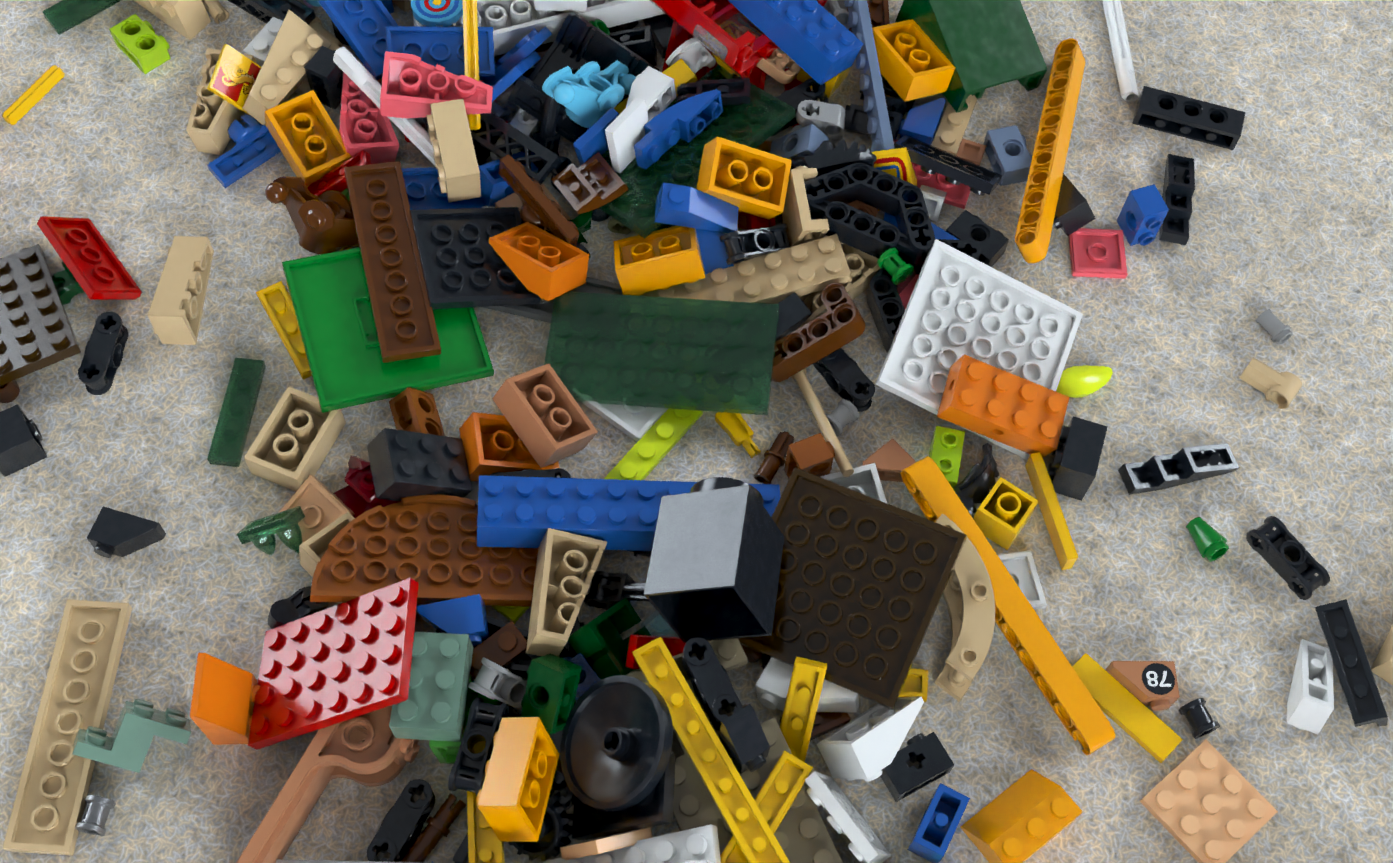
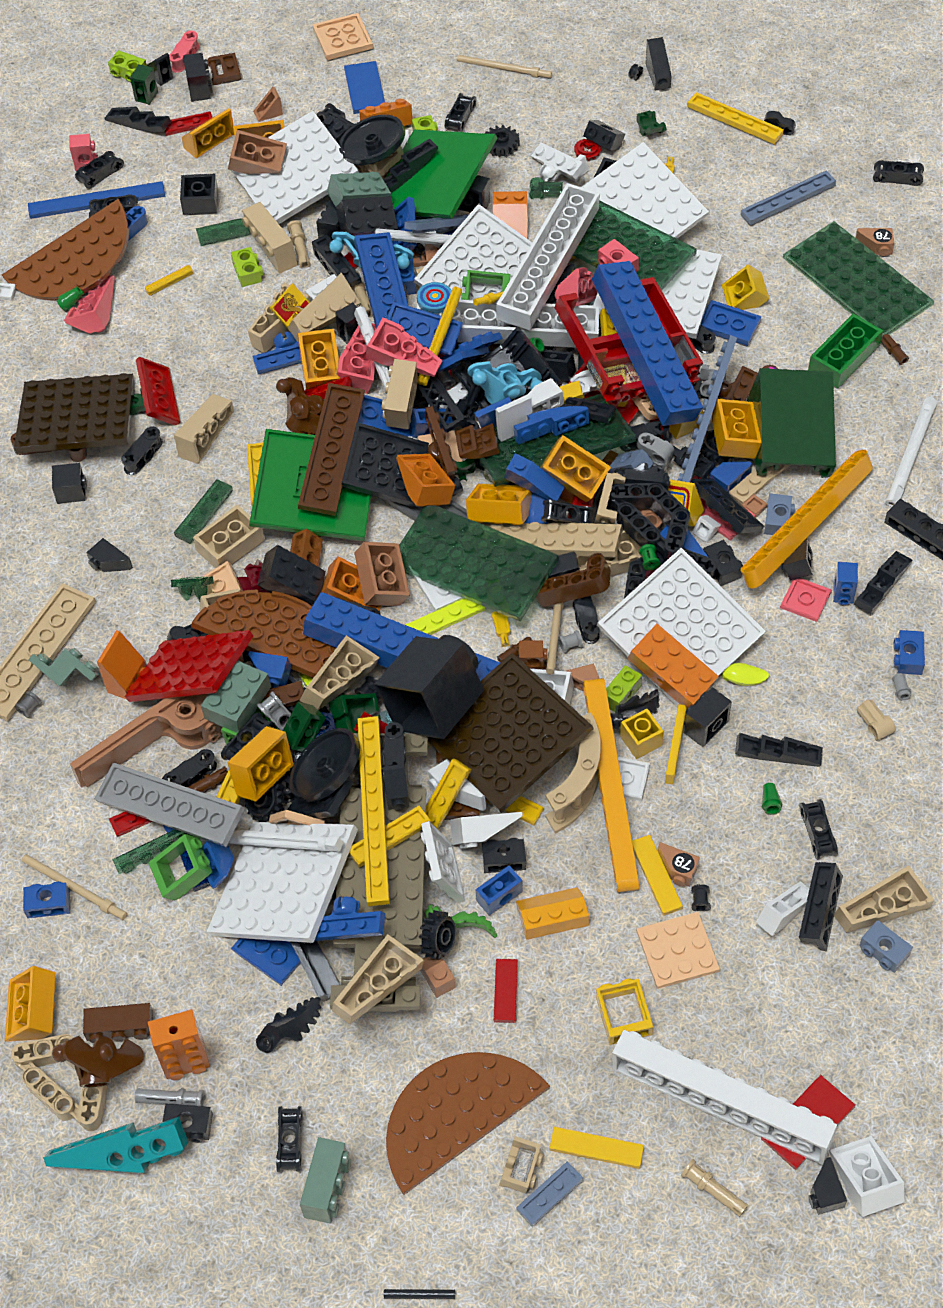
camera: 30 degrees right, 5 degrees down
(1261, 278) = (913, 643): none -> blue brick

